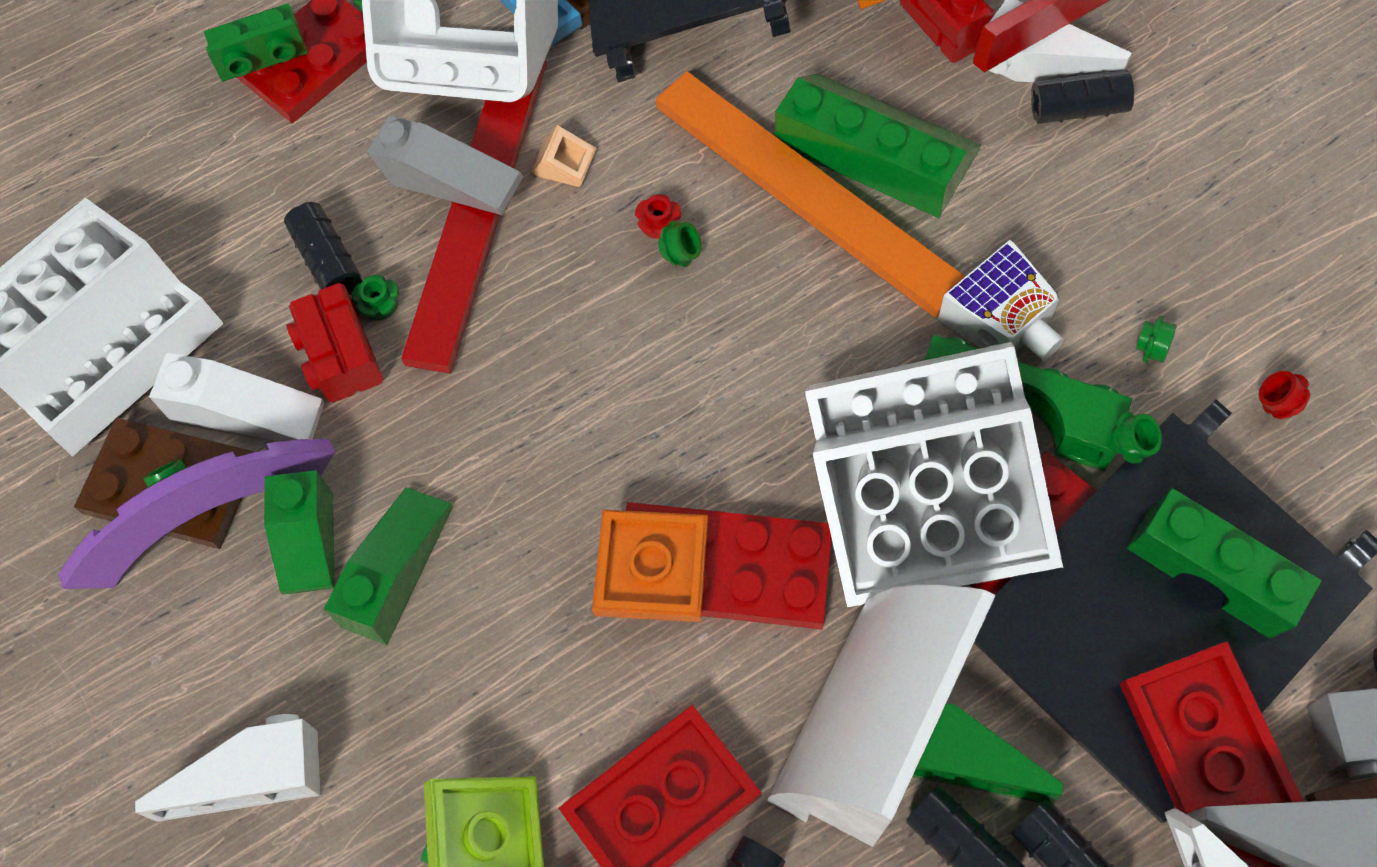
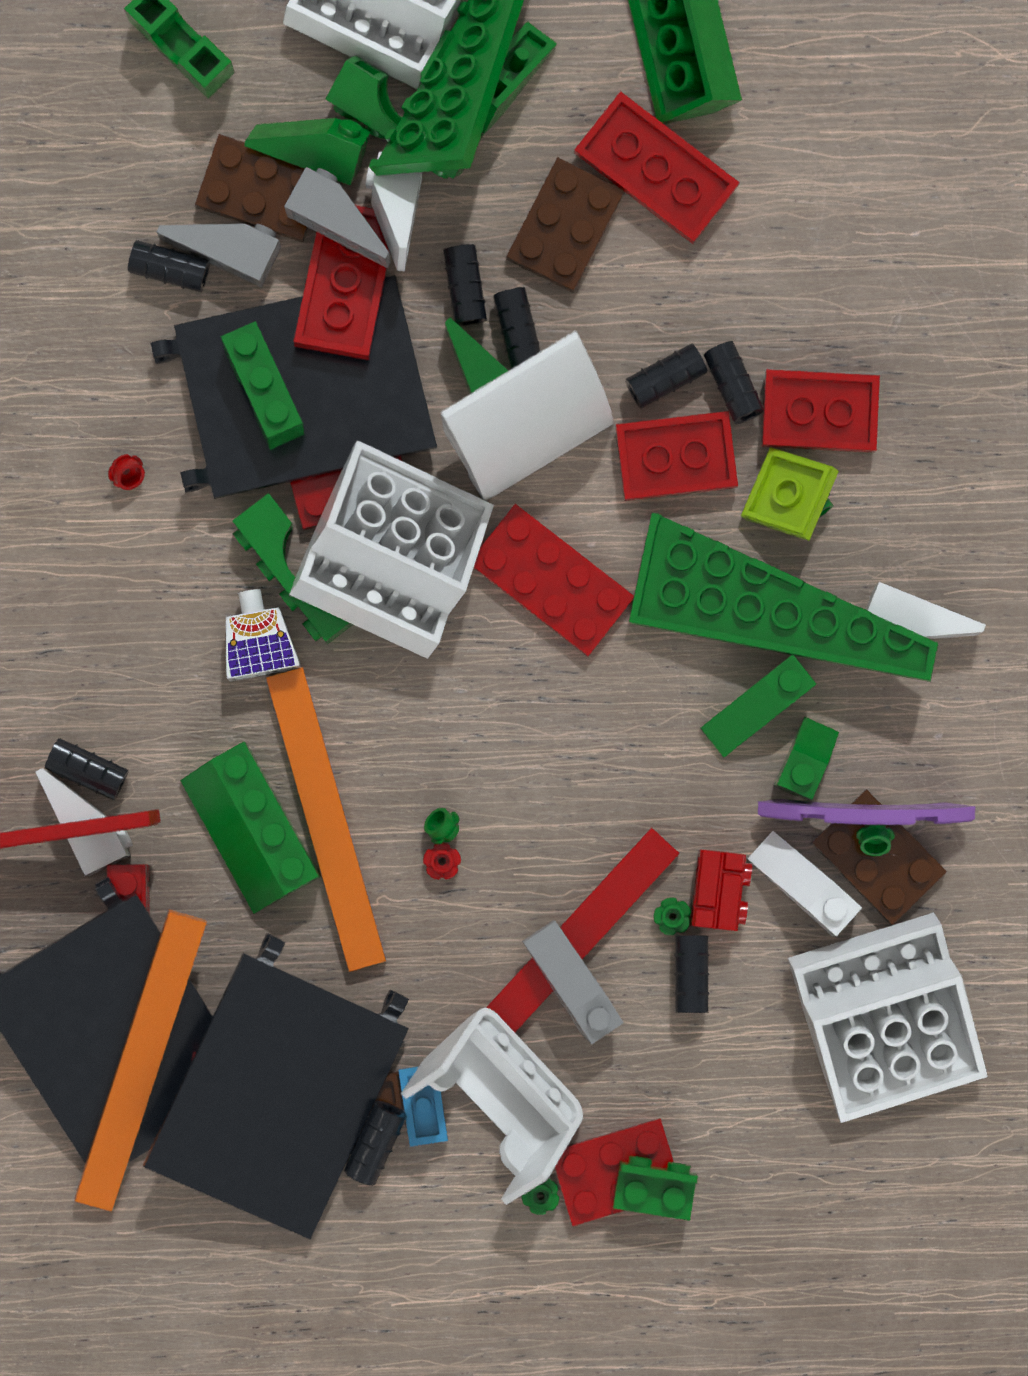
camera: 160 degrees left, 20 degrees up
(473, 664) = (725, 596): none -> green wing
(563, 158) = (480, 956): light nougat slope -> none
(650, 565) = (599, 597): orange tile -> none
(1136, 437) = (253, 491): green plate -> none
(1156, 339) = (176, 559): green plate -> none

